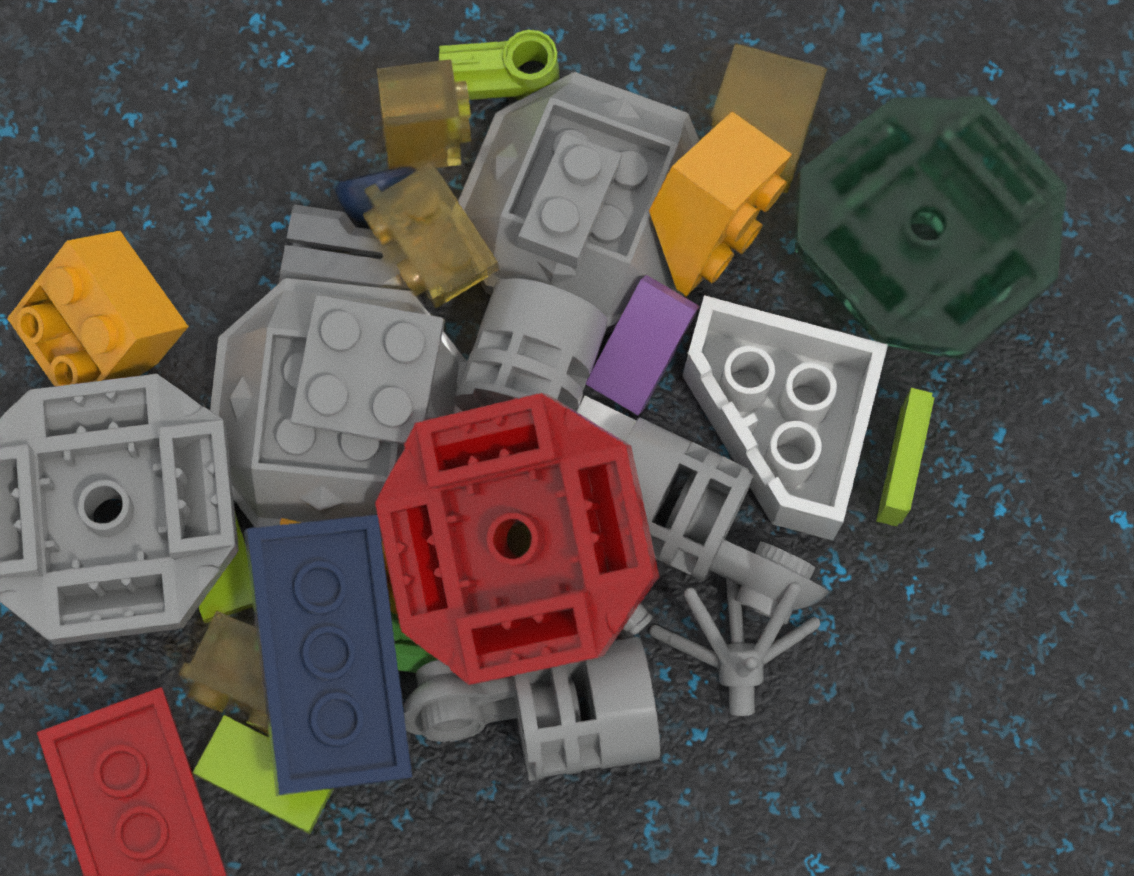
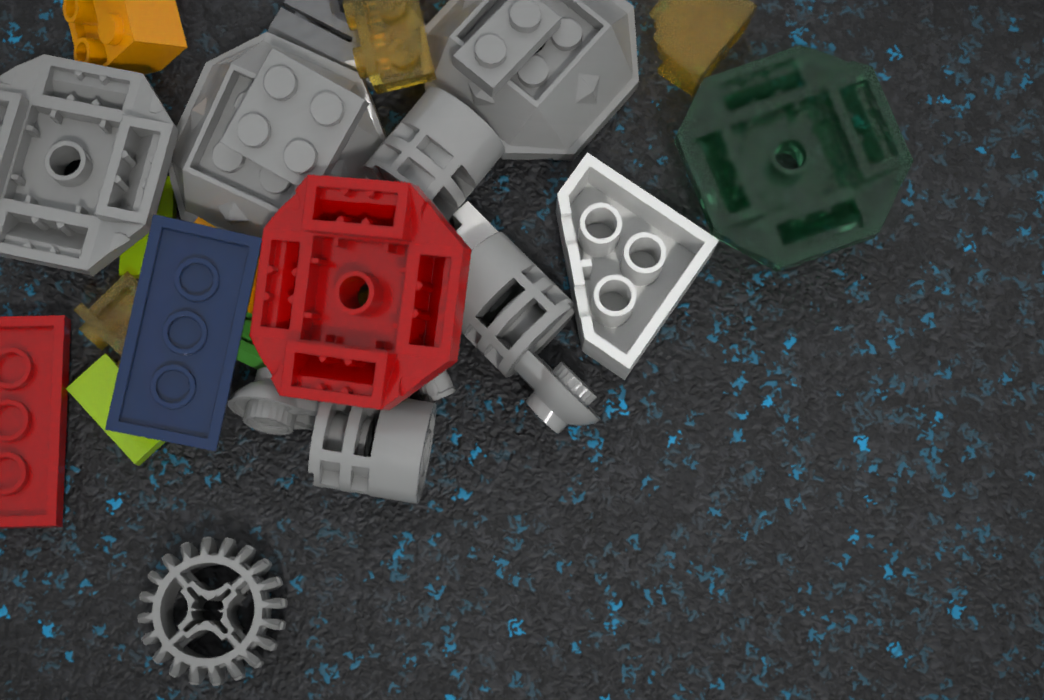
camera: 25 degrees right, 5 degrees up
(642, 344) = (529, 176): medium lavender tile -> none
(714, 200) = (624, 79): light orange slope -> none
(739, 662) = (513, 450): light grey plant -> none
(905, 457) = (705, 334): lime tile -> none

